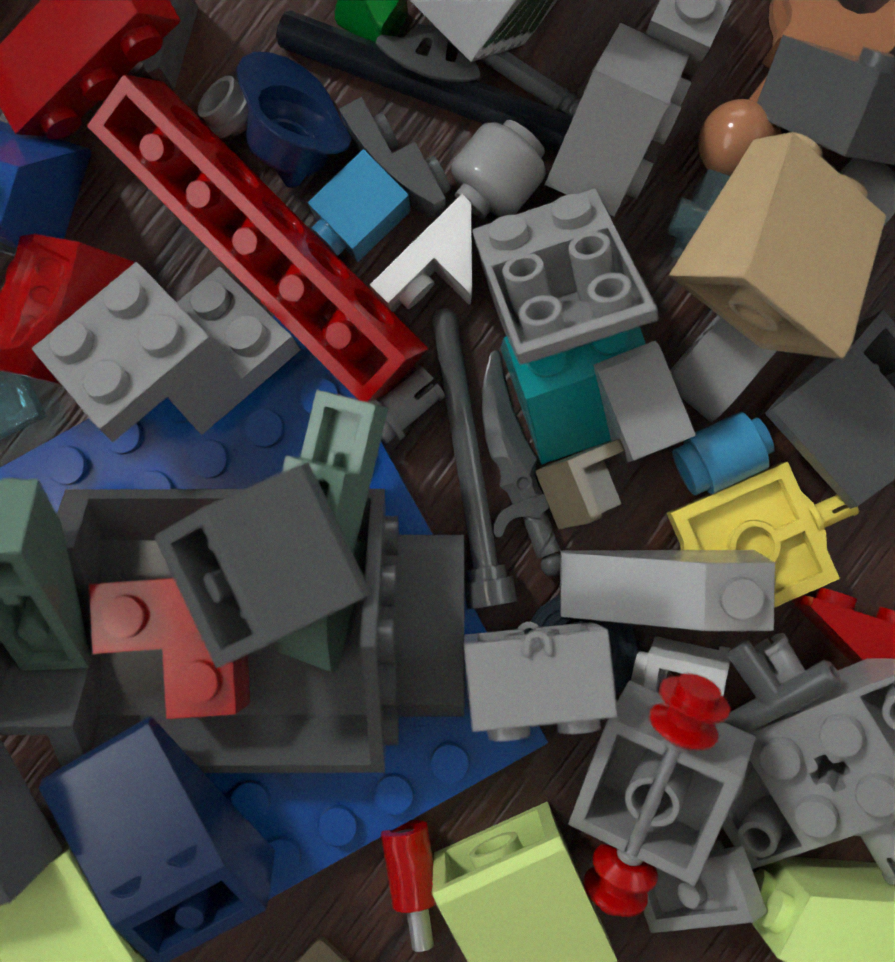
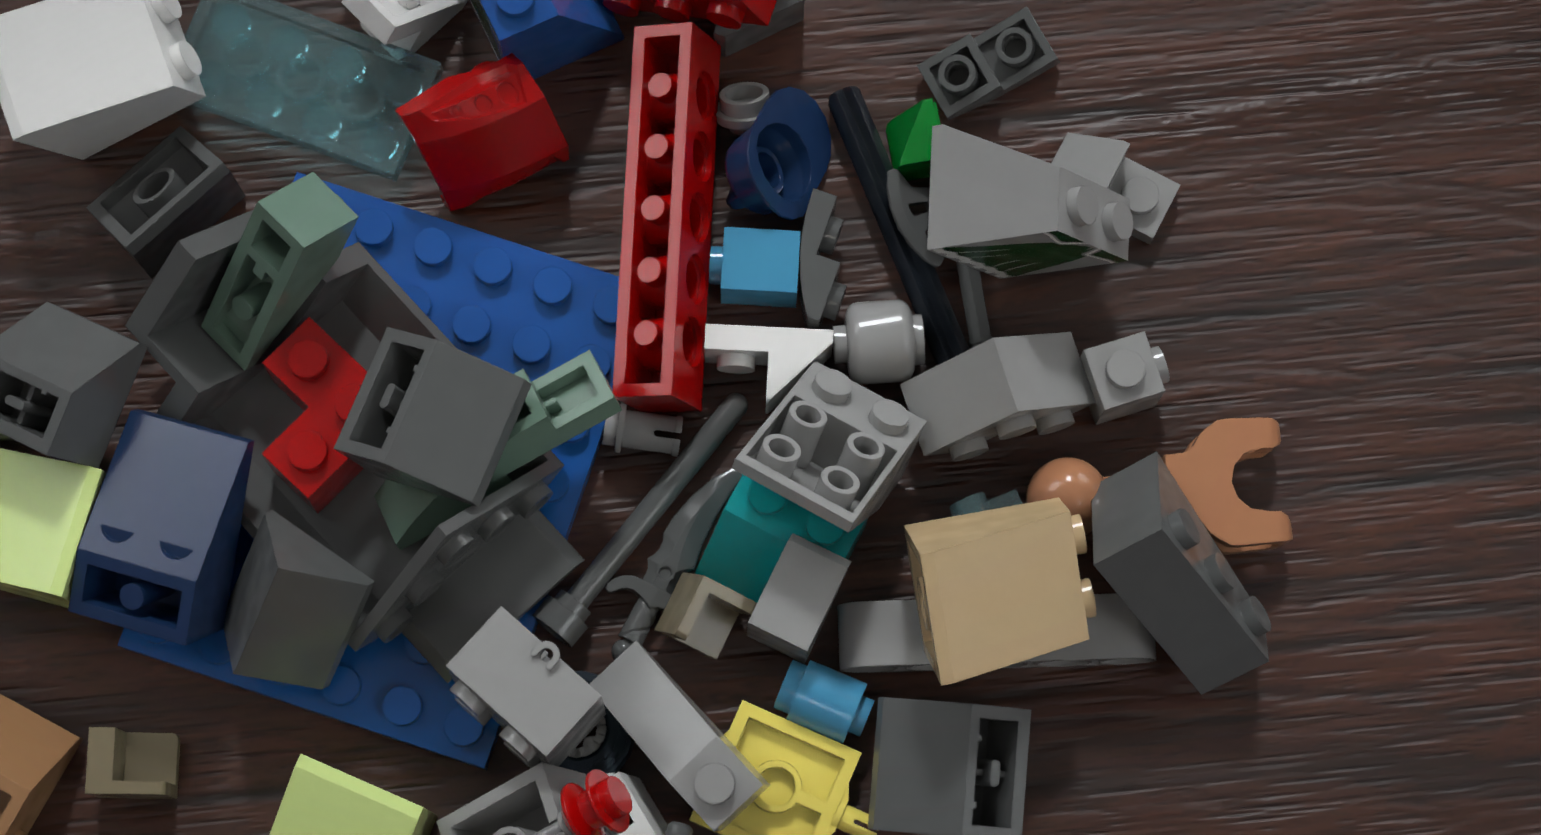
camera: 45 degrees right, 10 degrees down
(142, 346) = (511, 203): light grey bracket -> none
(308, 793) = (292, 607): none -> dark grey slope
(411, 878) = (302, 734): red piece -> none

